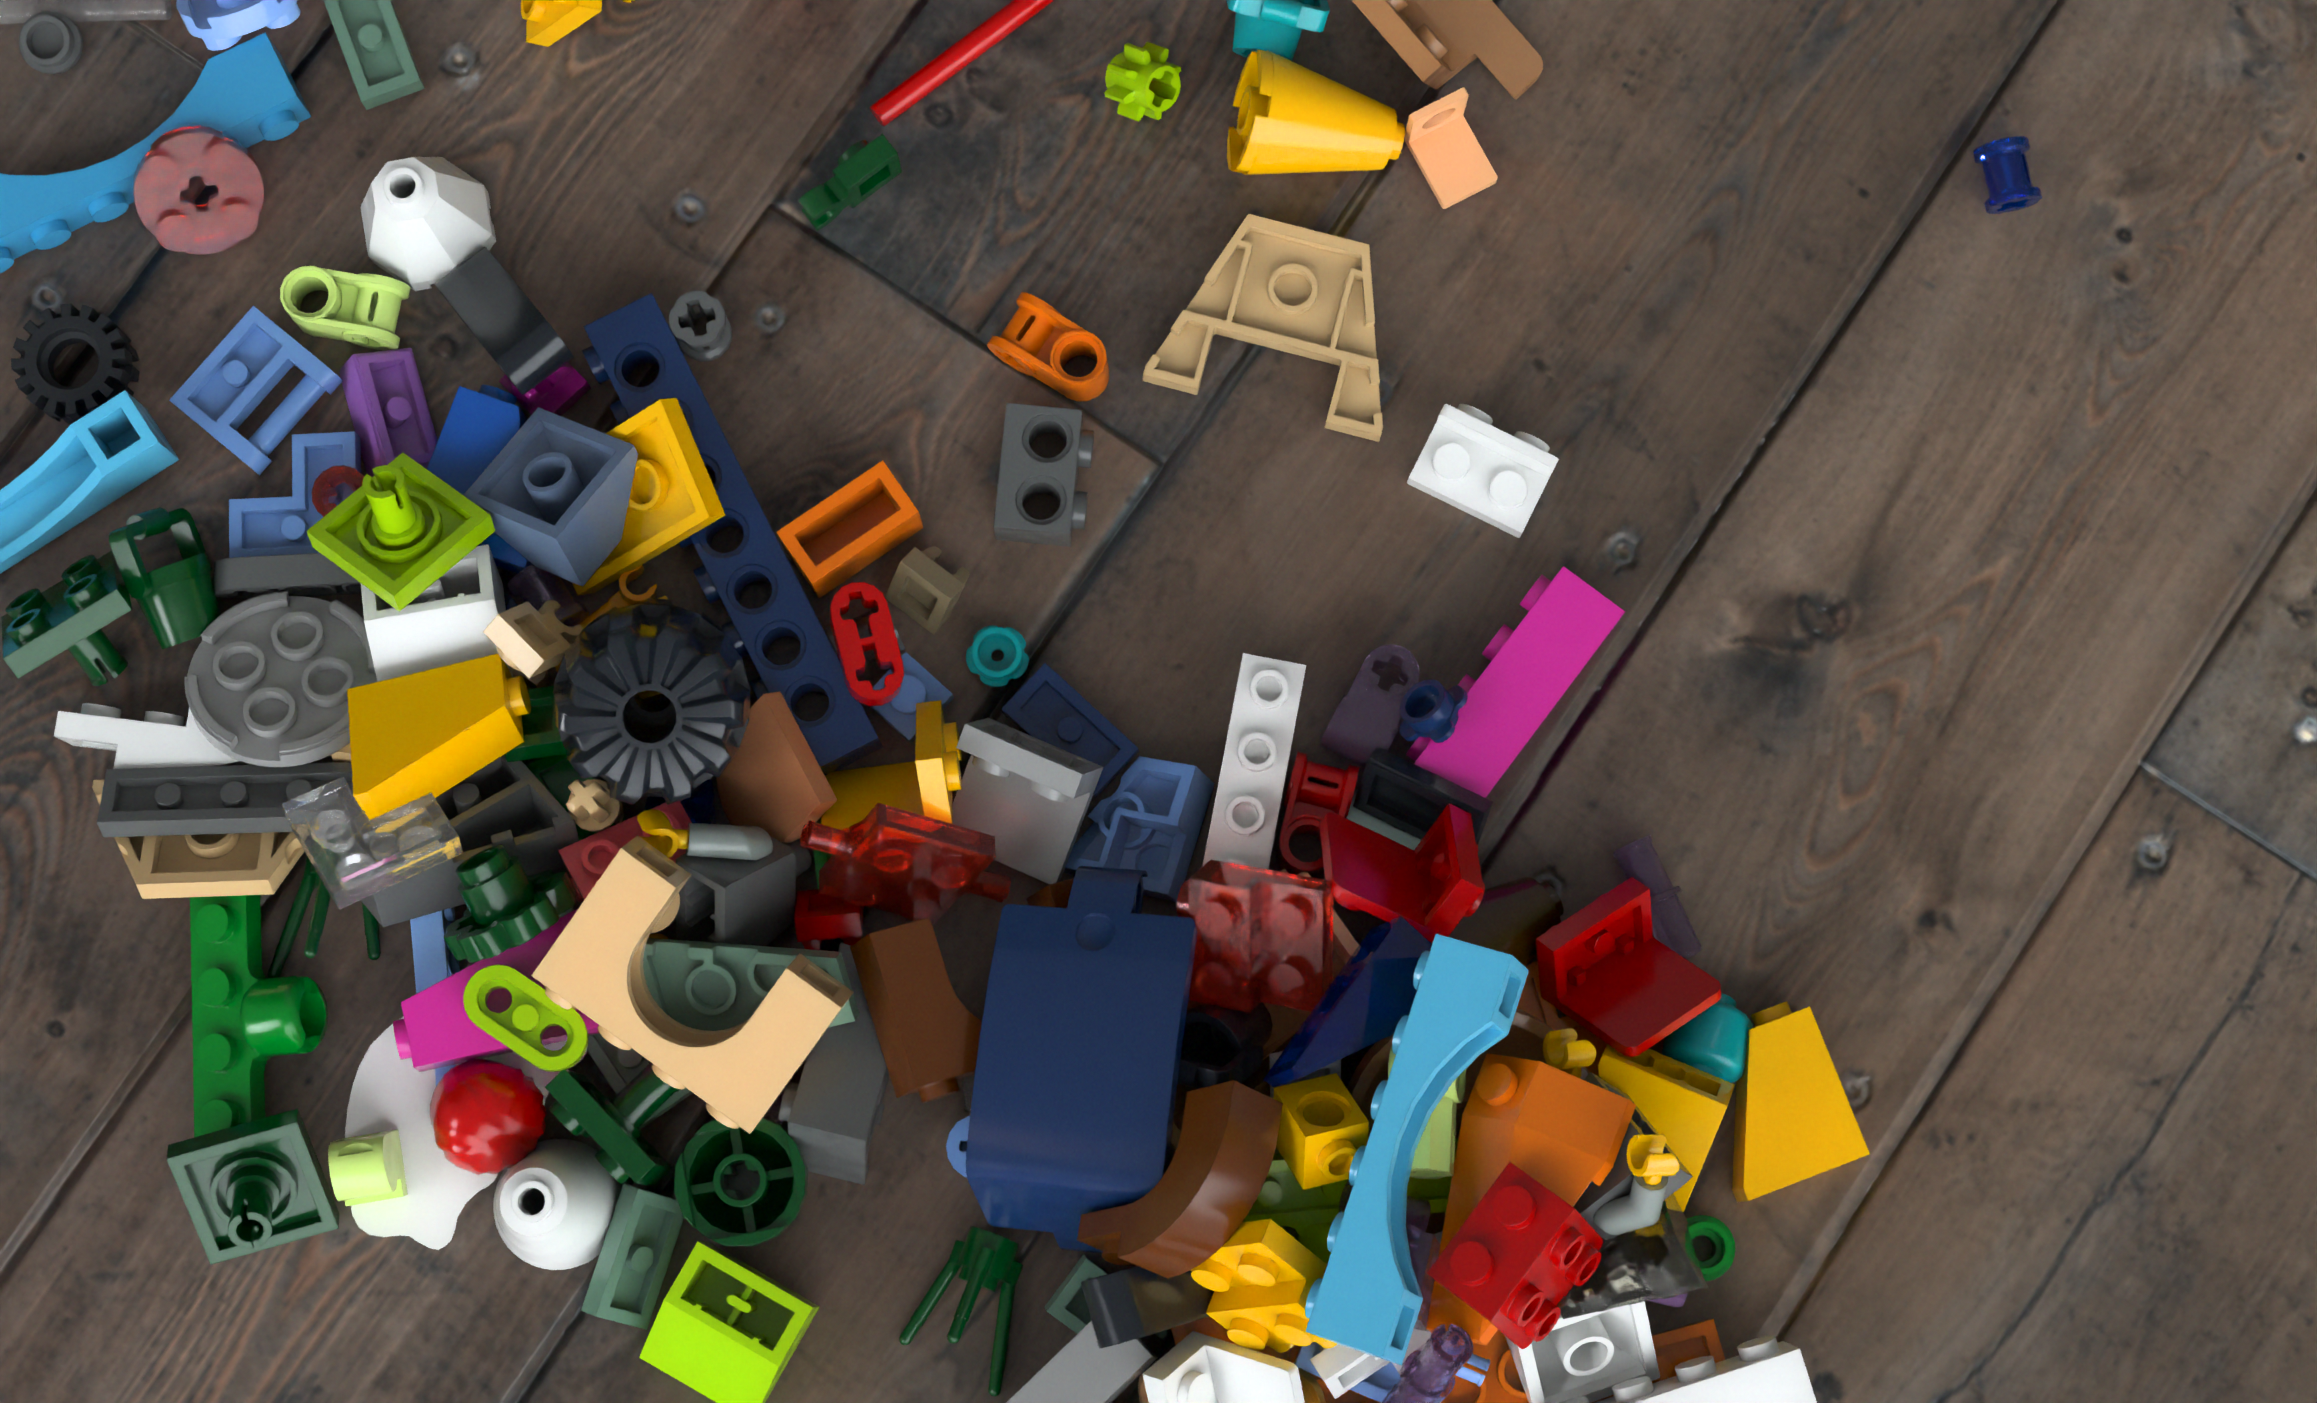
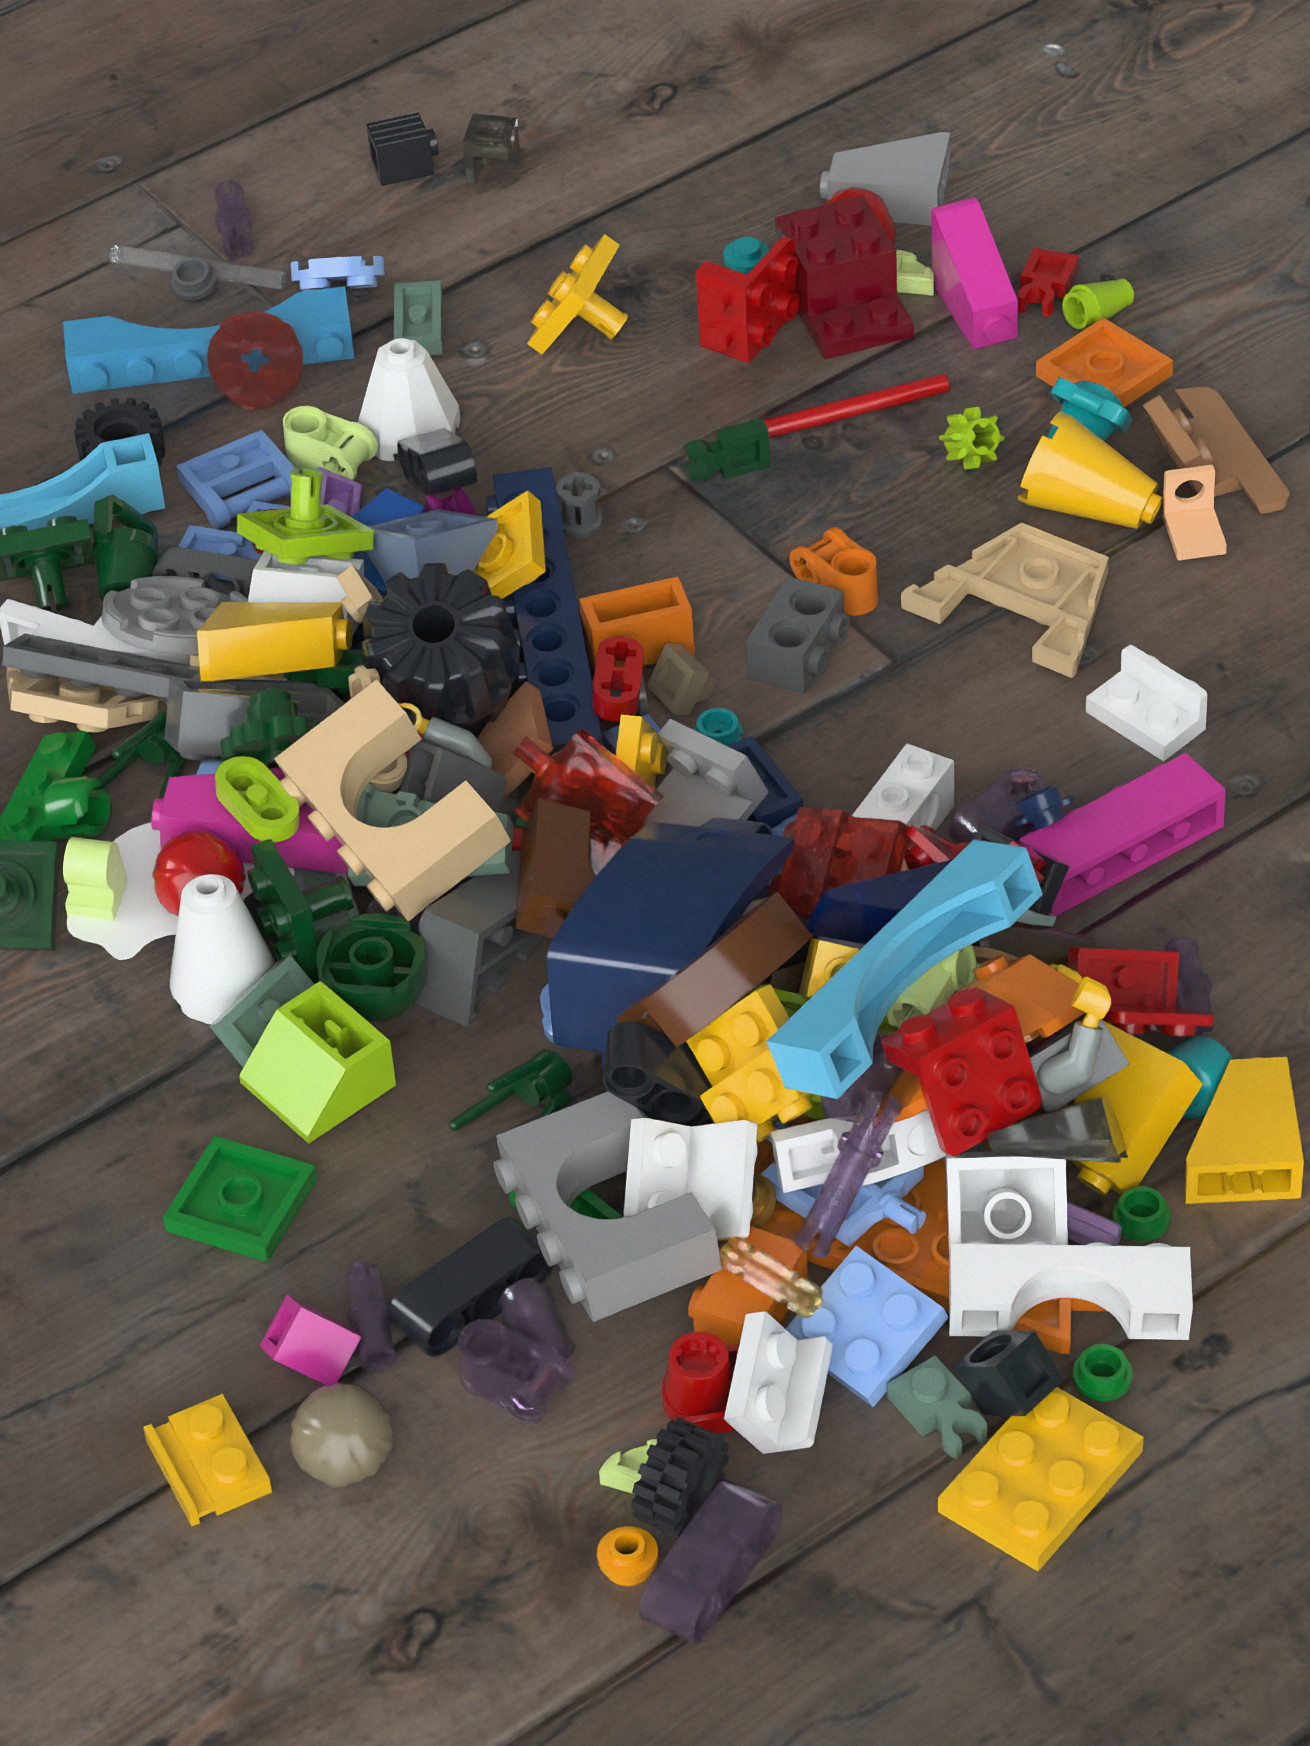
camera: 25 degrees right, 35 degrees down
(366, 855) = (180, 666): clear plate -> none

